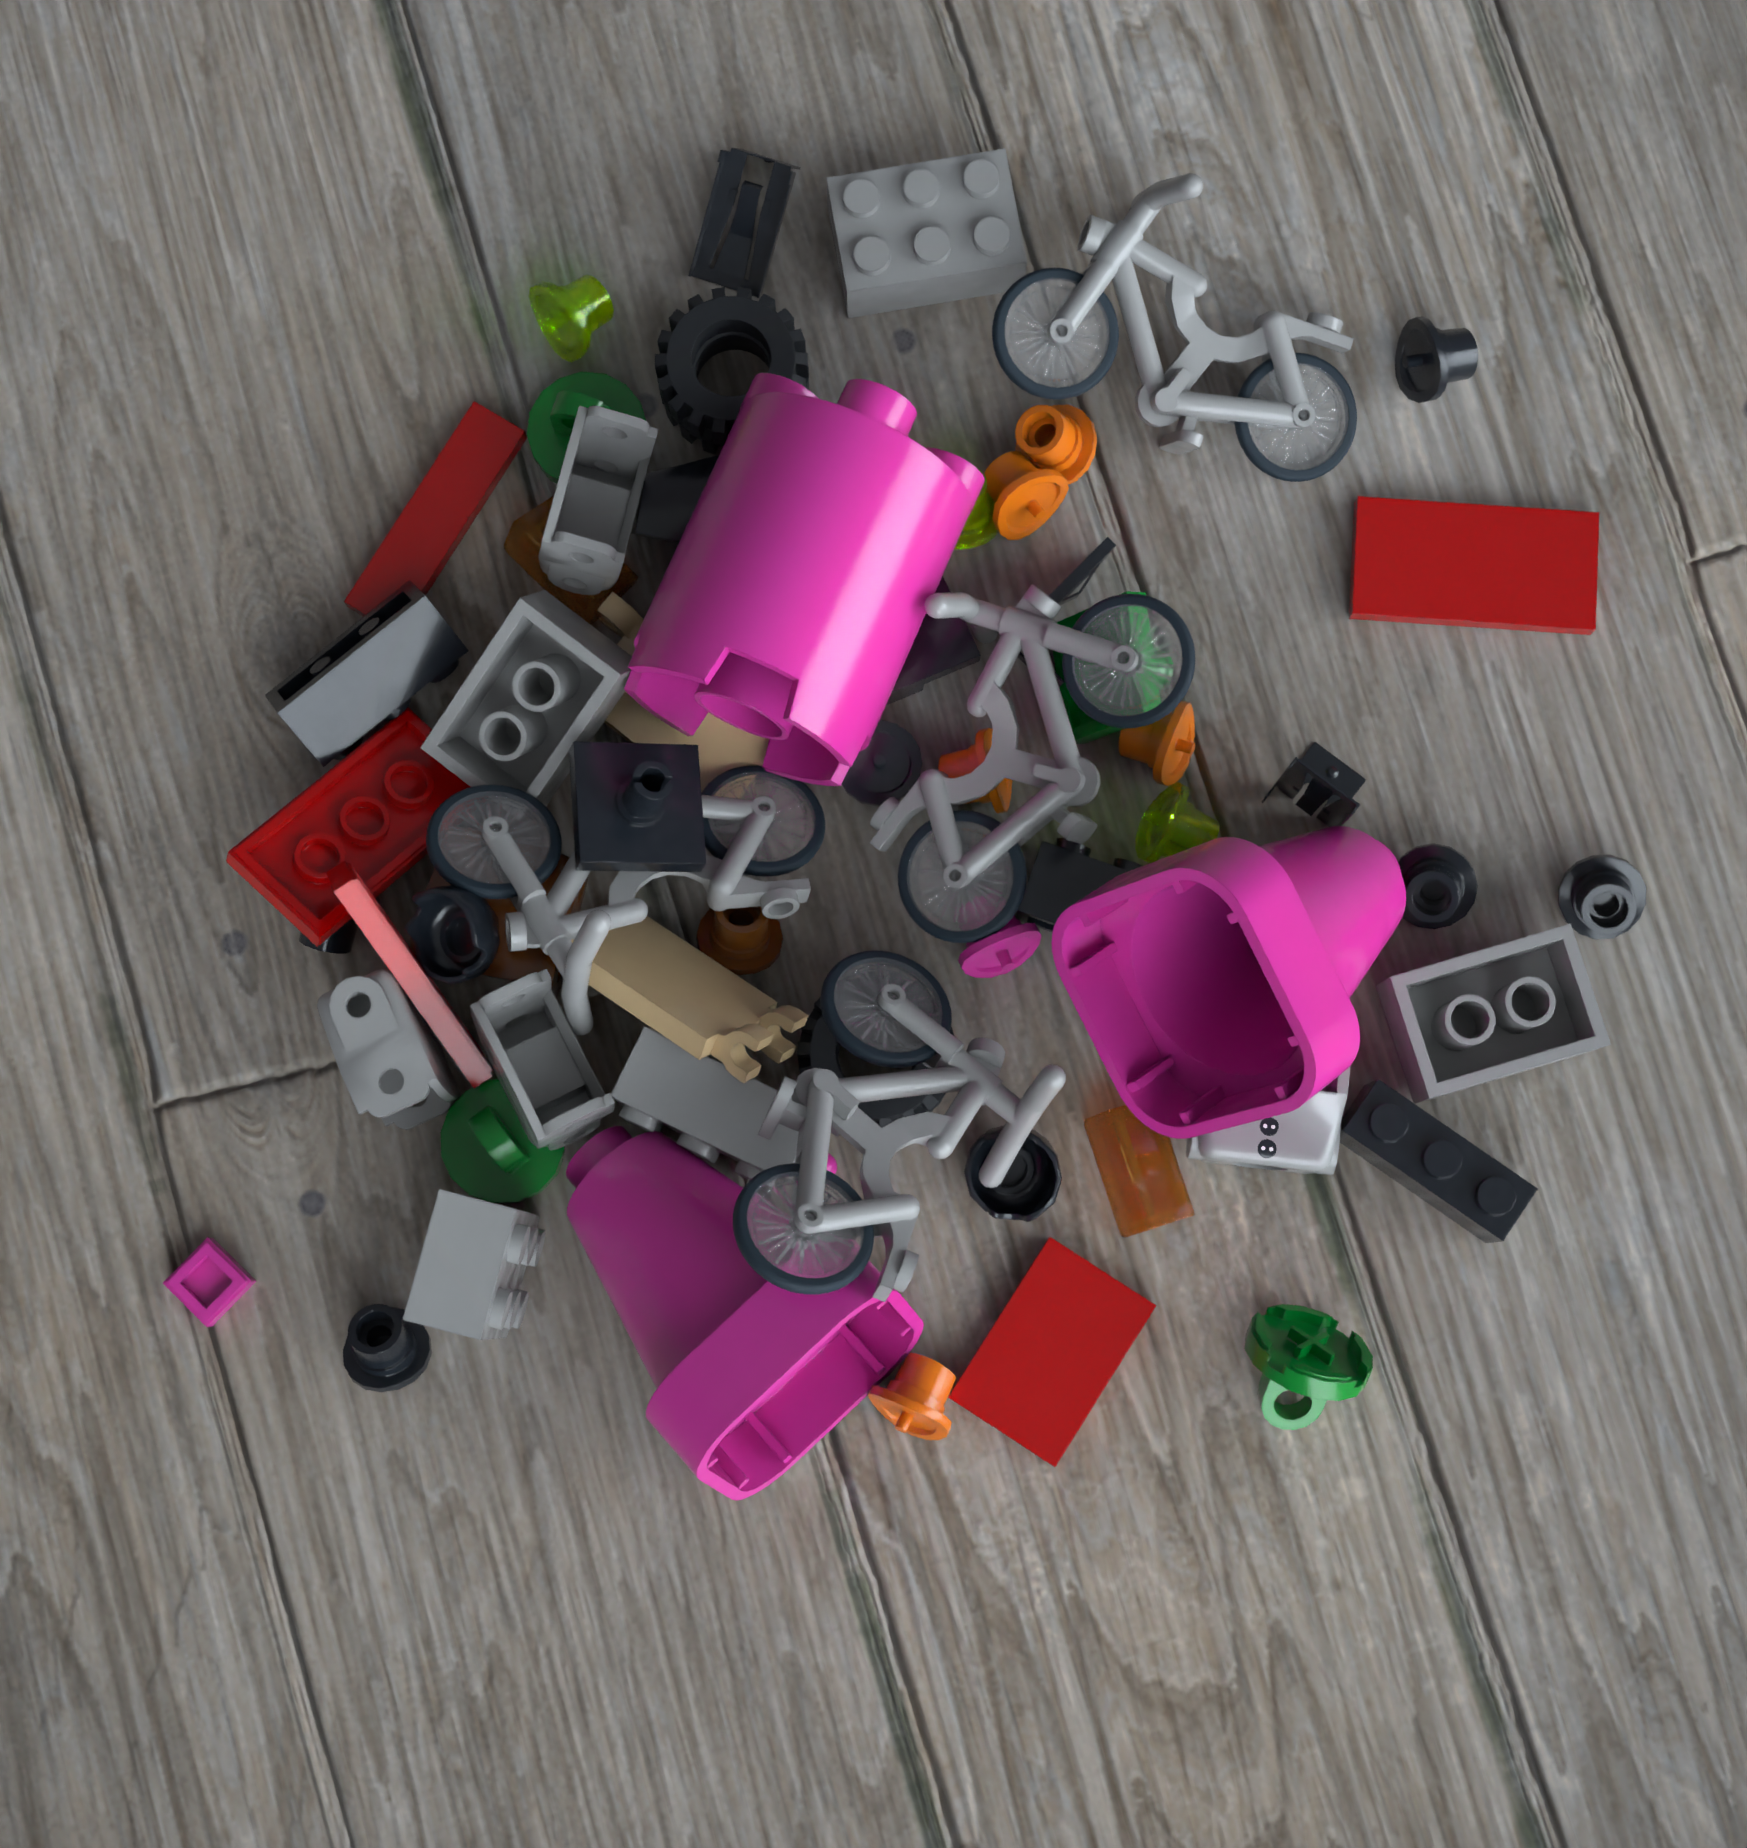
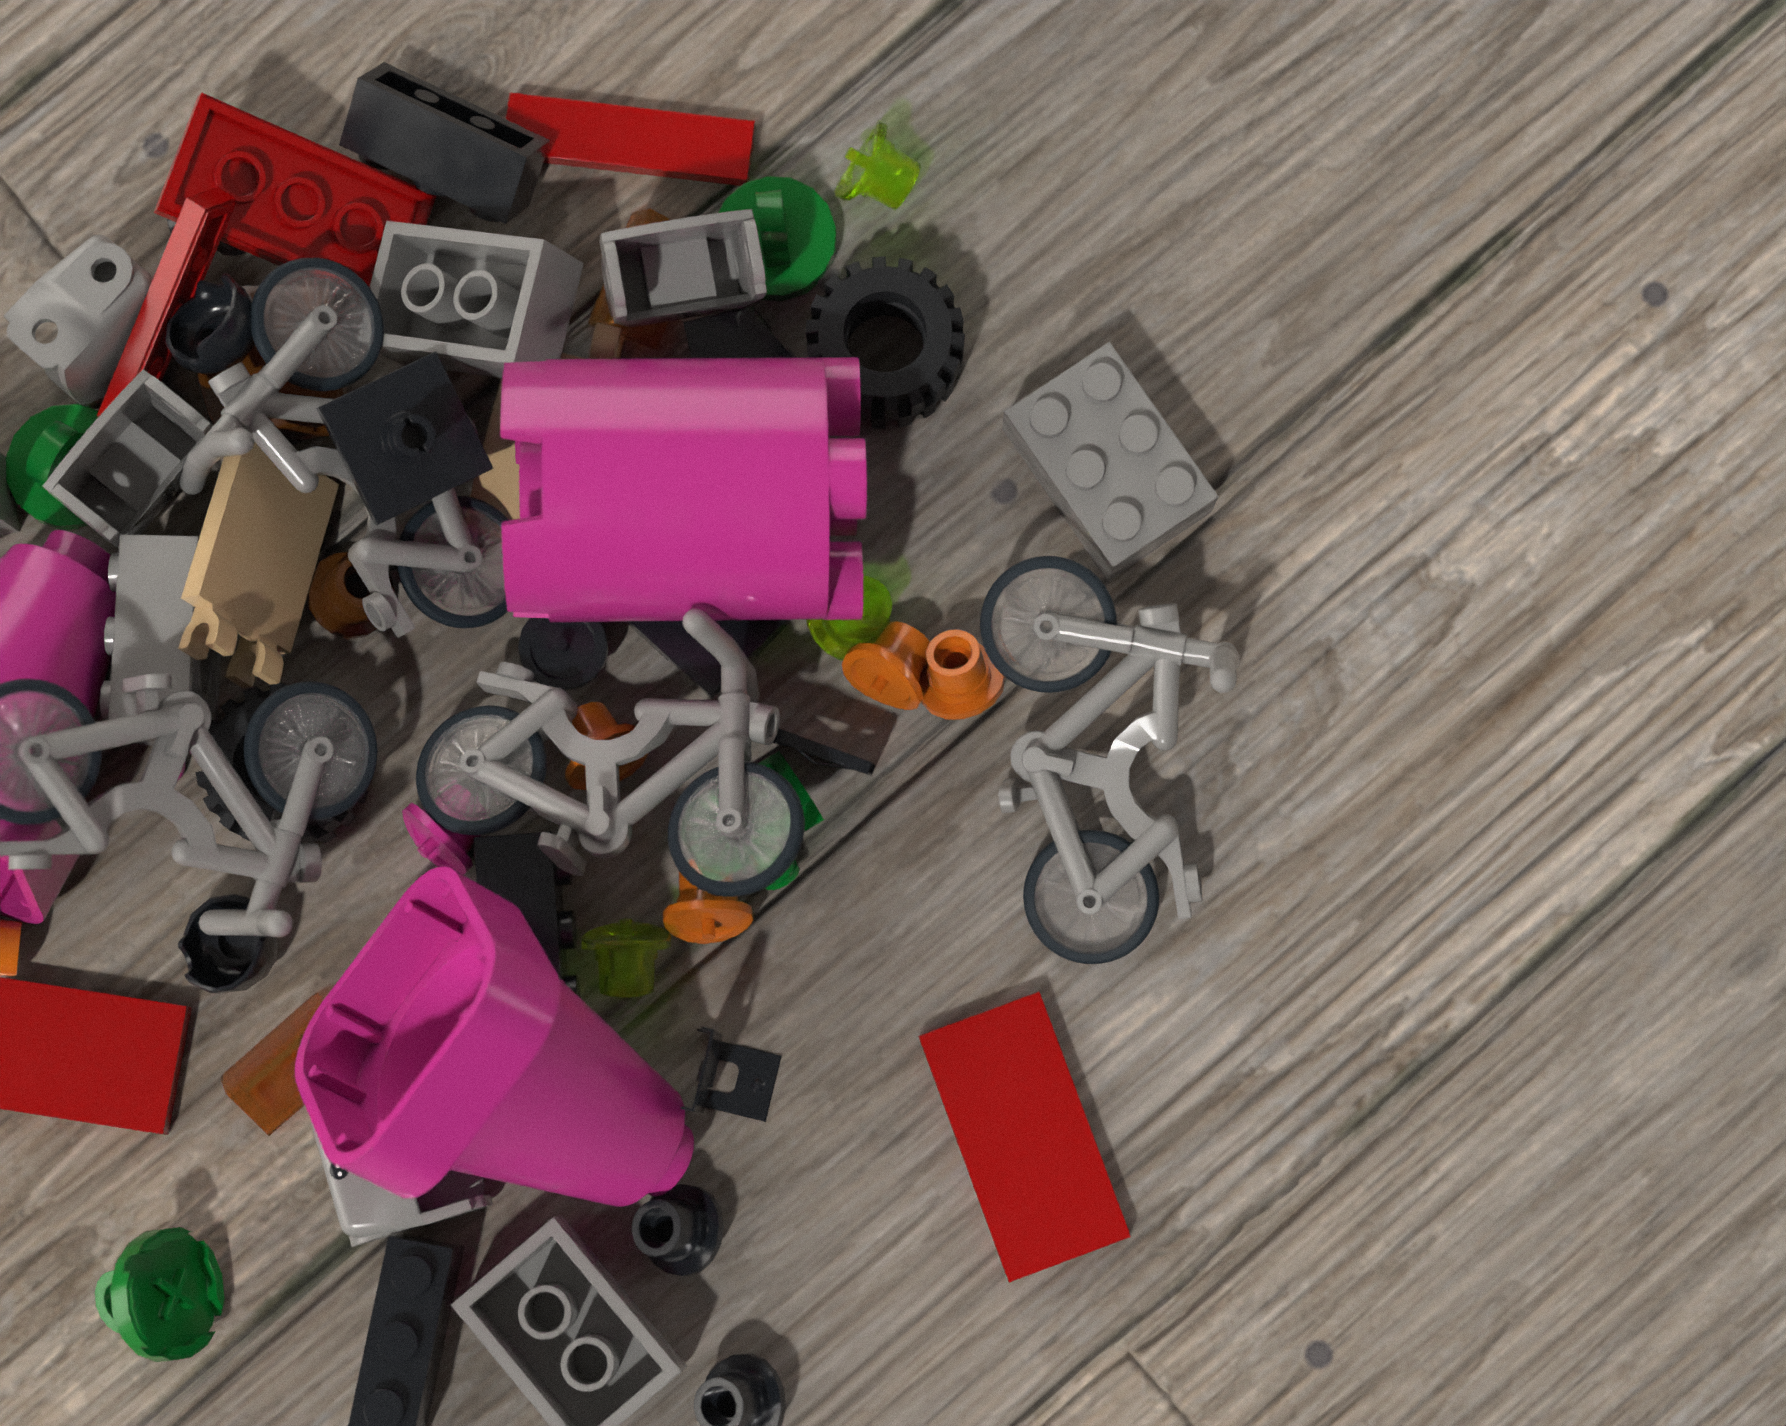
camera: 70 degrees right, 0 degrees up
(735, 253) = (1017, 294): black piece -> none
(1432, 358) = (1211, 1007): black piece -> none

